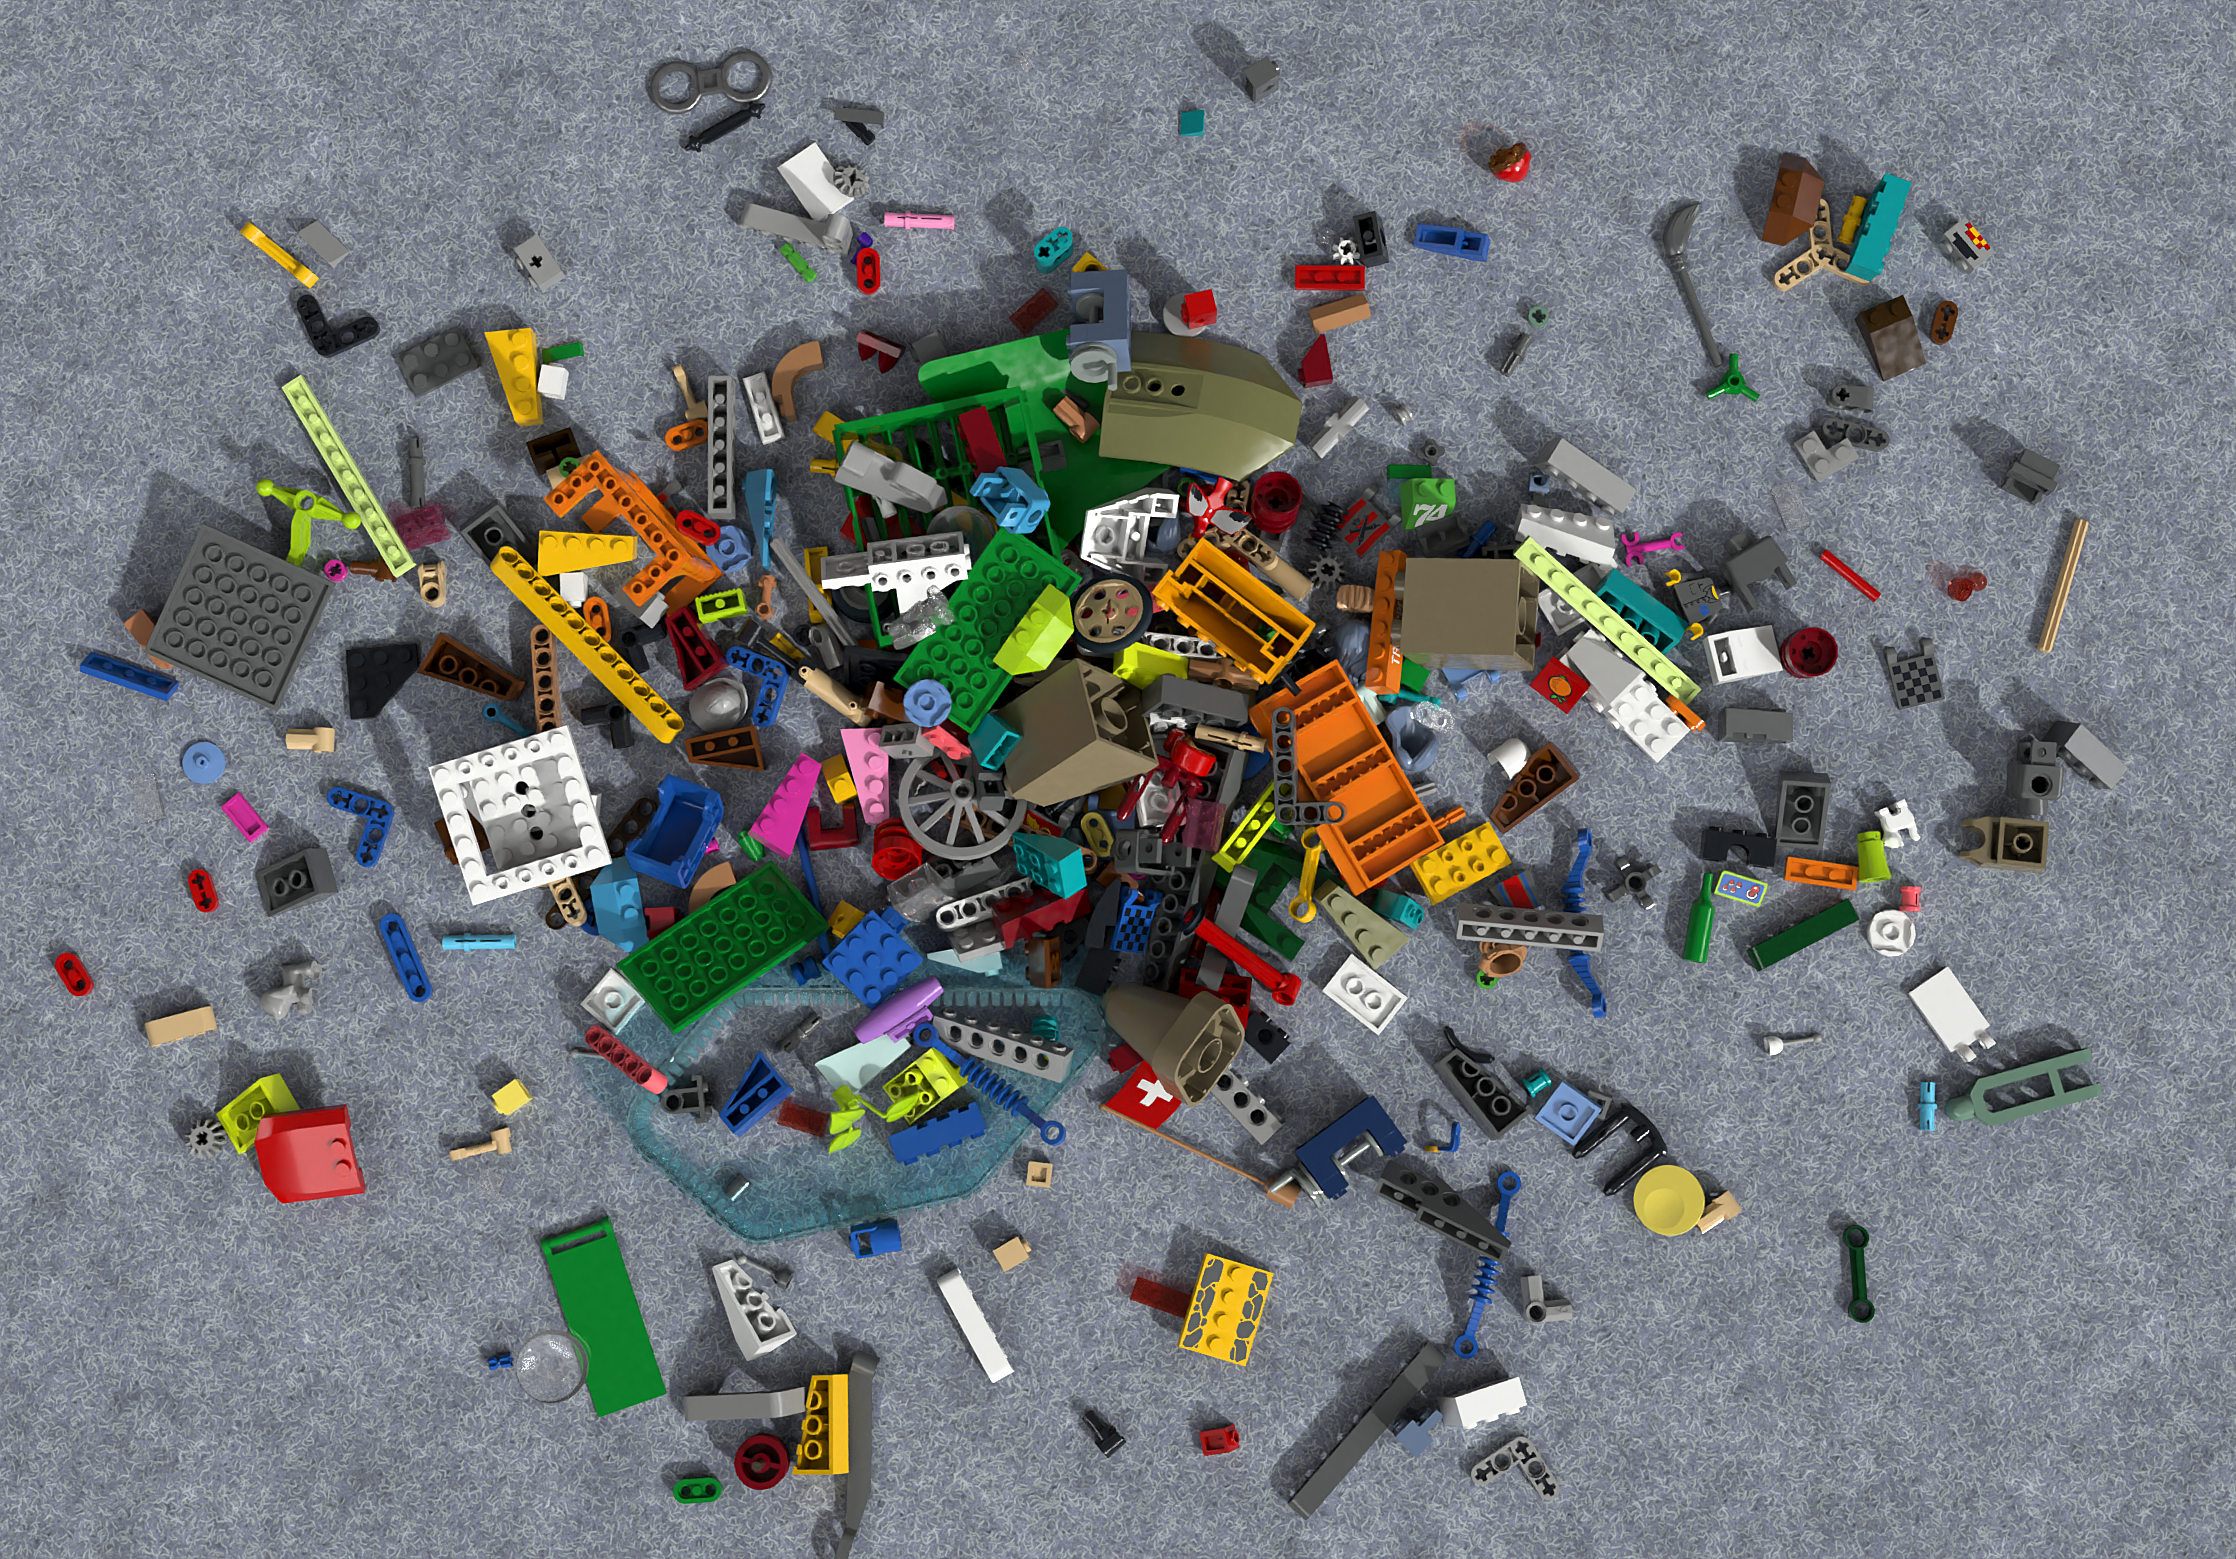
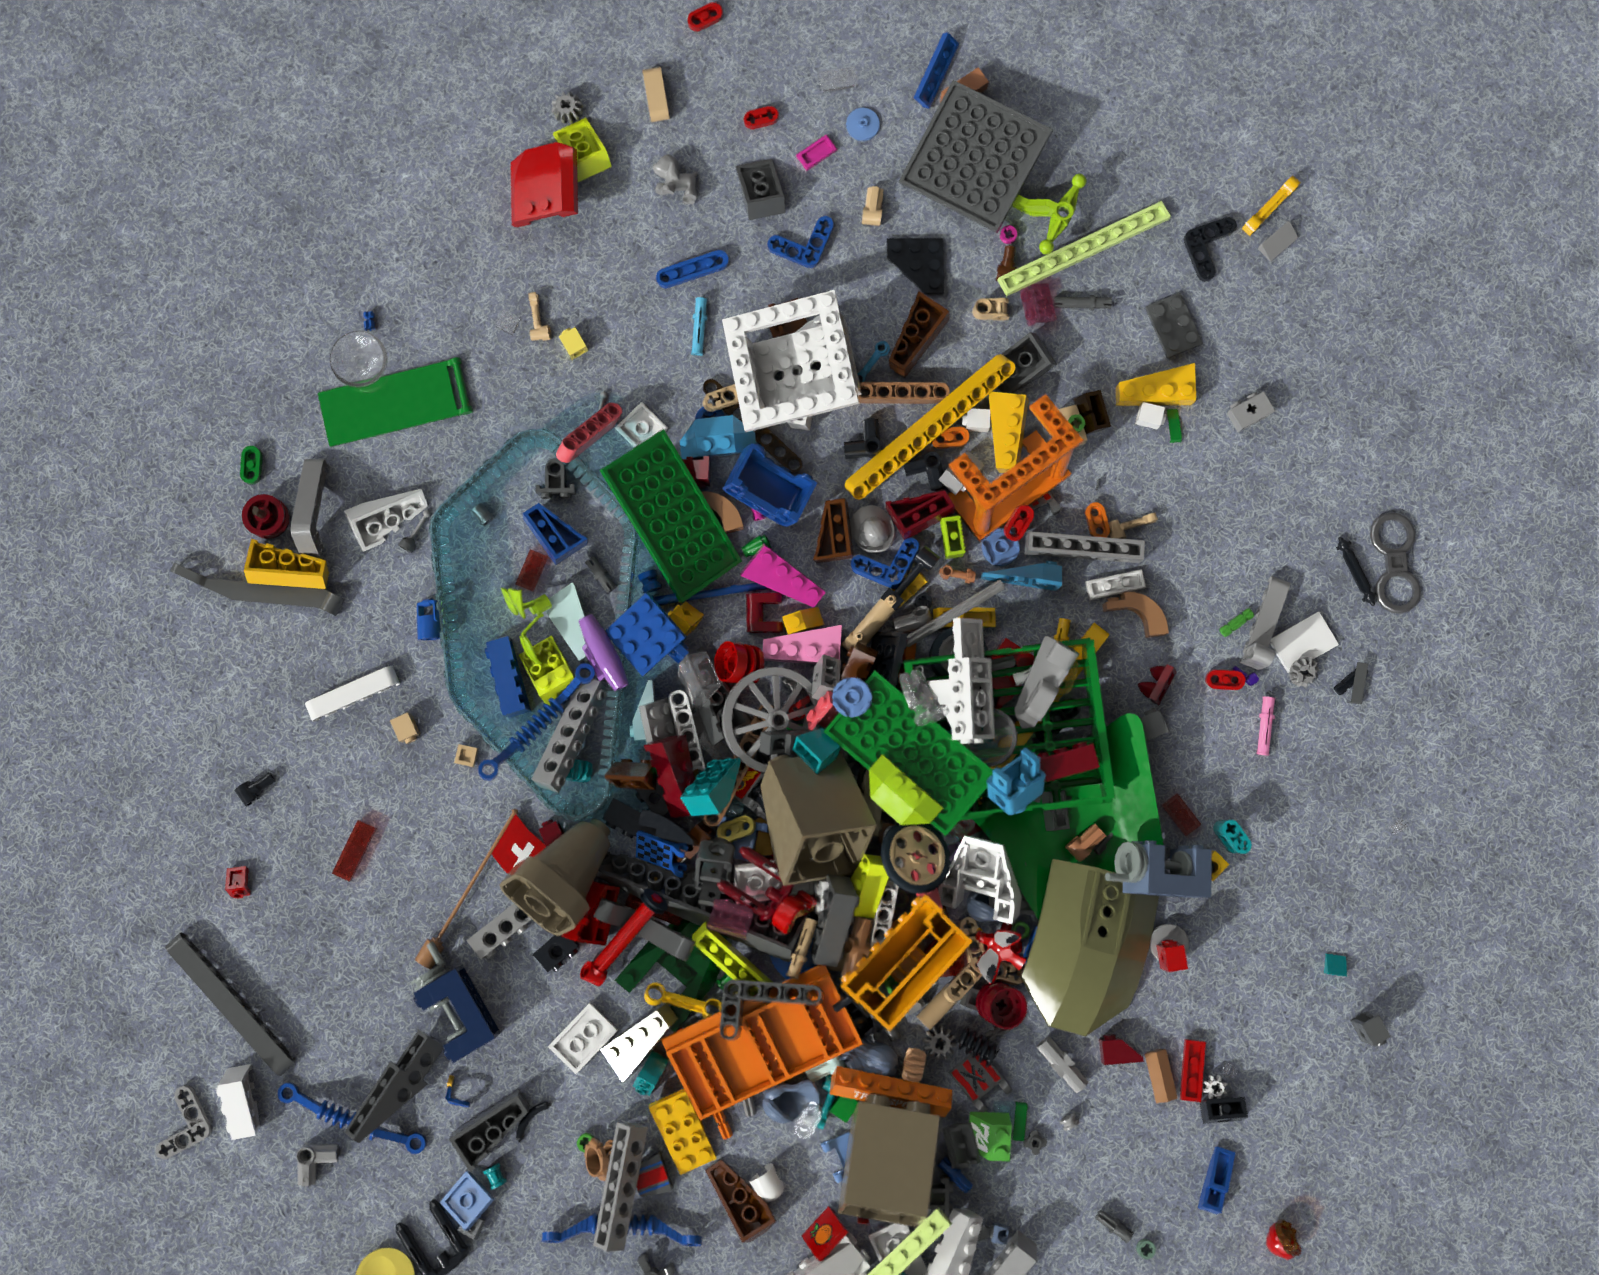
camera: 90 degrees right, 0 degrees up
(1225, 1309) = (340, 896): yellow plate -> none
(1414, 1434) = (221, 1044): sand blue brick -> none

